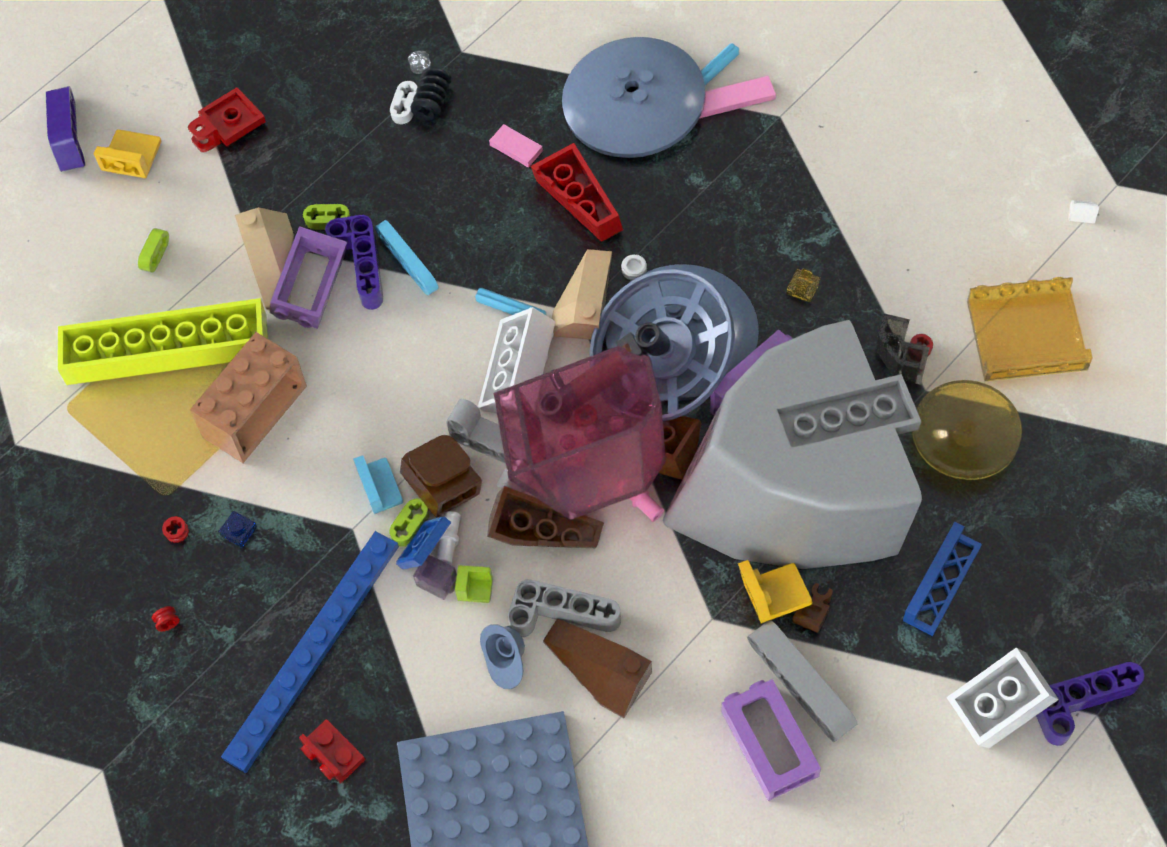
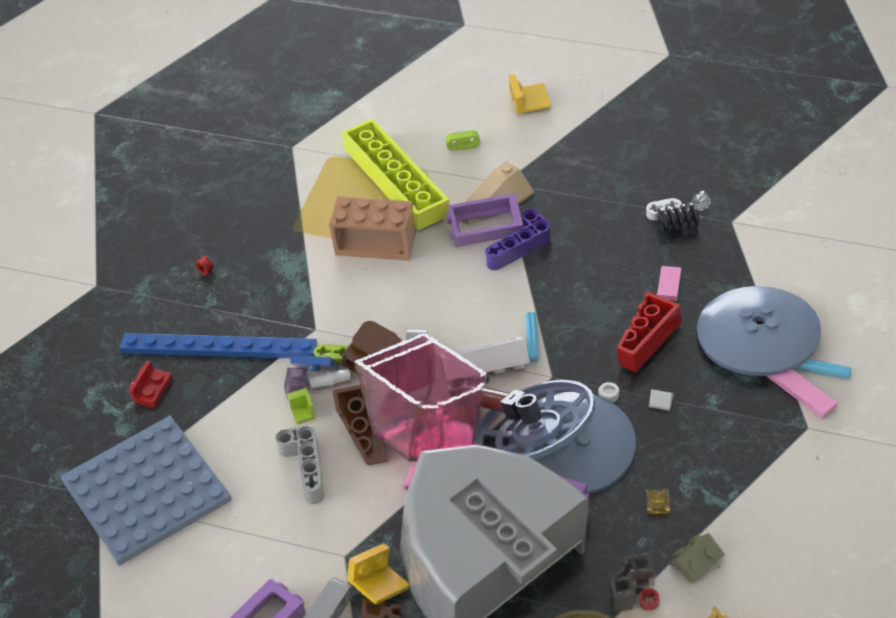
camera: 65 degrees right, 15 degrees down
(63, 129) = (522, 54): dark purple beam -> none
(182, 532) = (269, 243): red bush -> none
(218, 127) = (578, 126): red plate -> none
(237, 529) = (285, 272): clear blue plate -> none
(326, 213) = (546, 210): lime beam -> none
(378, 484) = (349, 322): medium azure panel -> none
(406, 257) = (534, 264): medium azure beam -> none
(503, 654) = (259, 444): sand blue piece -> none
(584, 297) = (580, 371): tan wedge -> none
(600, 665) = (274, 506): reddish brown wedge -> none
(672, 223) = (661, 400): none -> white slope
(891, 280) = (698, 556): none -> olive bracket

